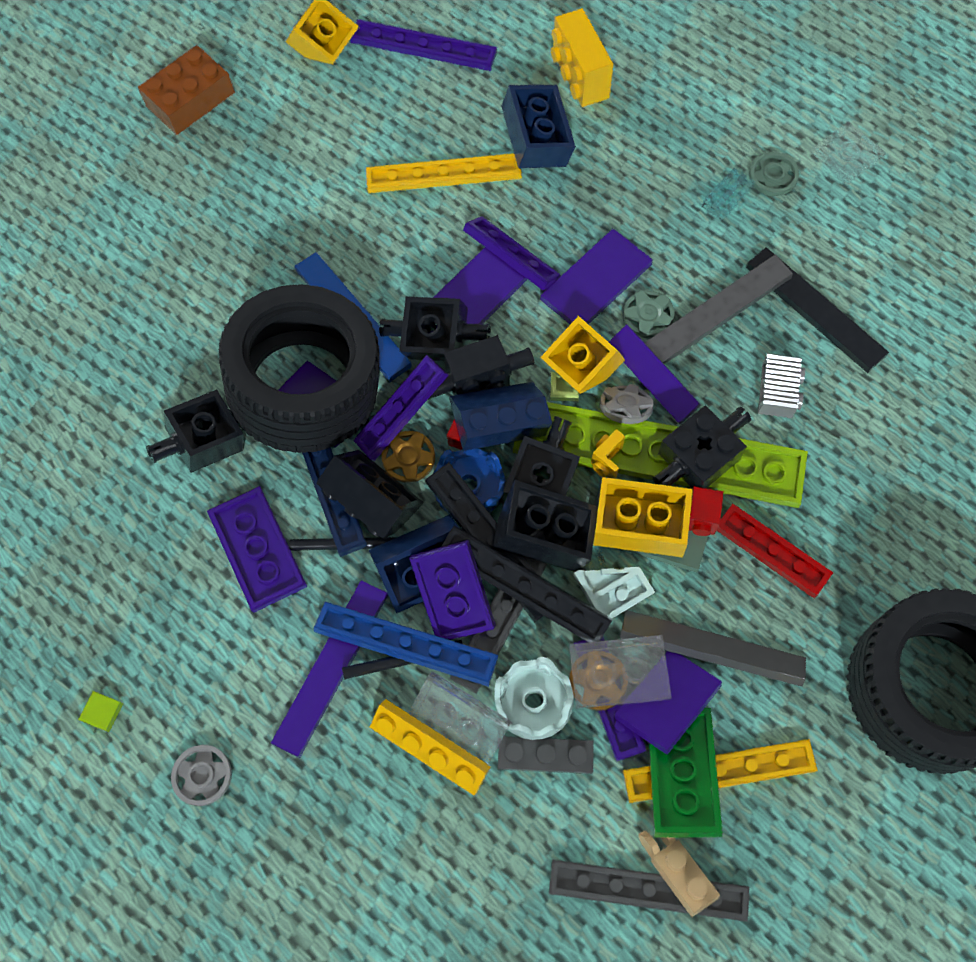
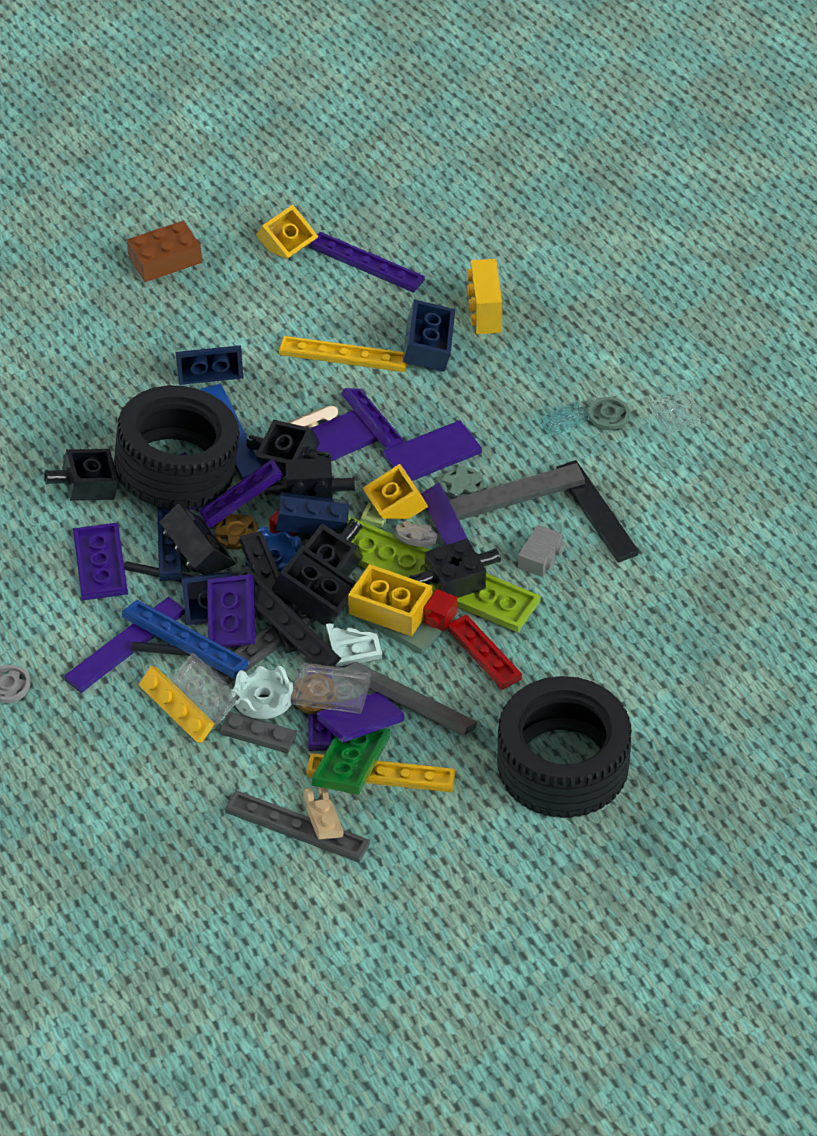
camera: 15 degrees right, 20 degrees down
(294, 230) = (209, 365): none -> dark blue slope
(439, 274) = (311, 419): none -> hinge
(606, 449) = (384, 554): yellow bracket -> none

